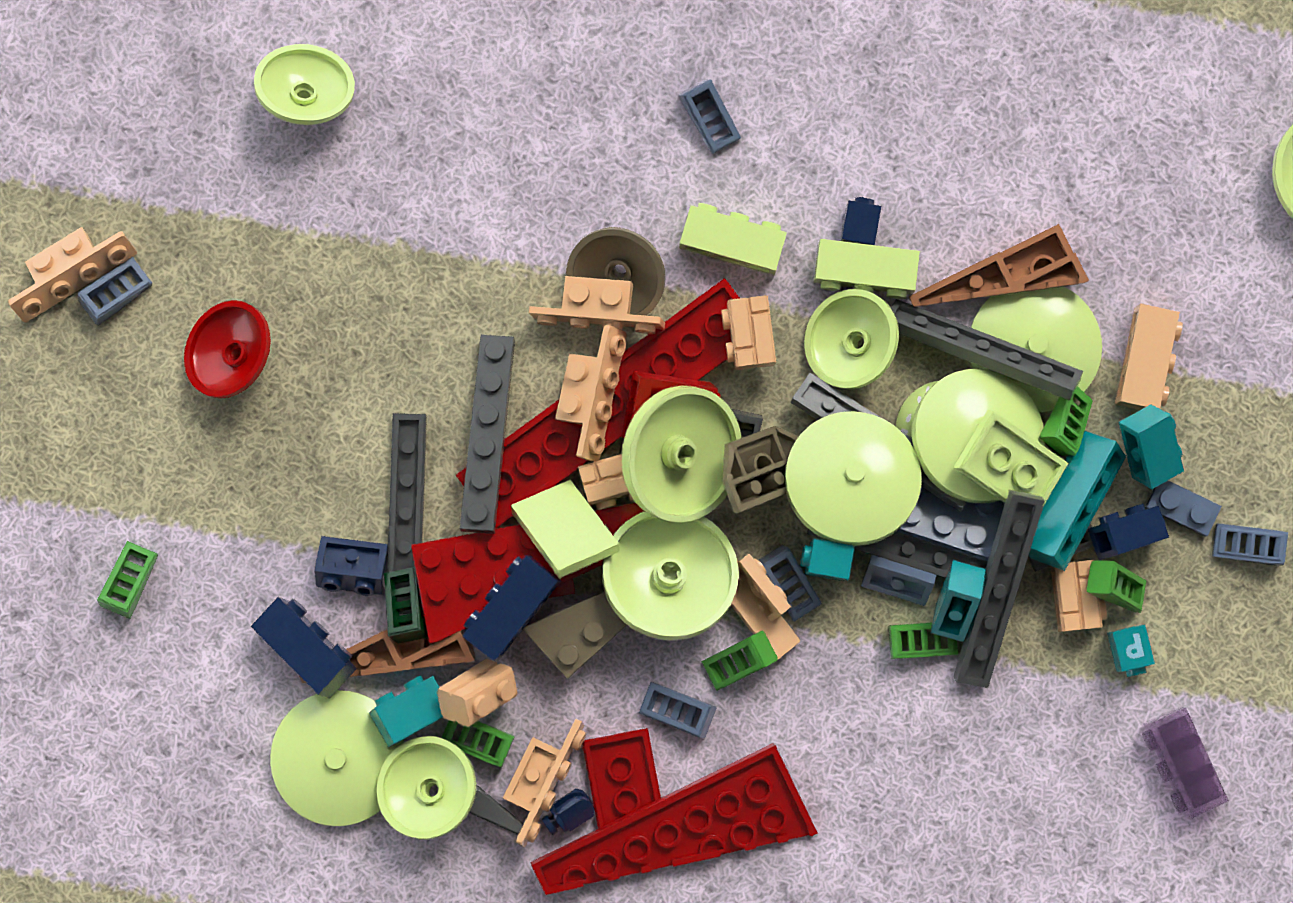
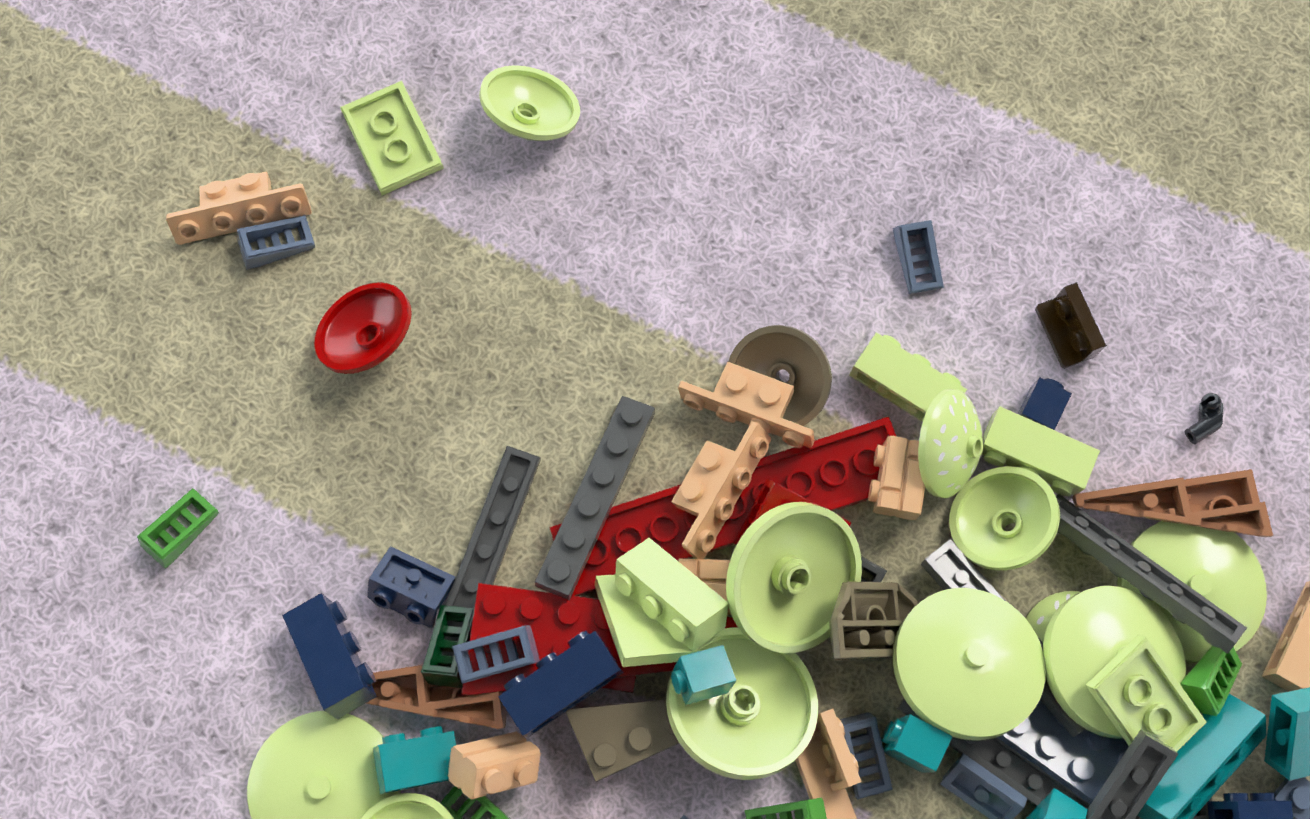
camera: 15 degrees right, 10 degrees down
(185, 155) = (391, 138): none -> yellowish green tile
(473, 585) = (463, 660): none -> sand blue slope
(580, 502) = (671, 594): none -> yellowish green brick
(629, 562) = (703, 675): none -> brick
(783, 288) = (949, 443): none -> yellowish green dish
(864, 142) = (1070, 327): none -> dark brown bracket
(1013, 186) = (1209, 418): none -> black arm

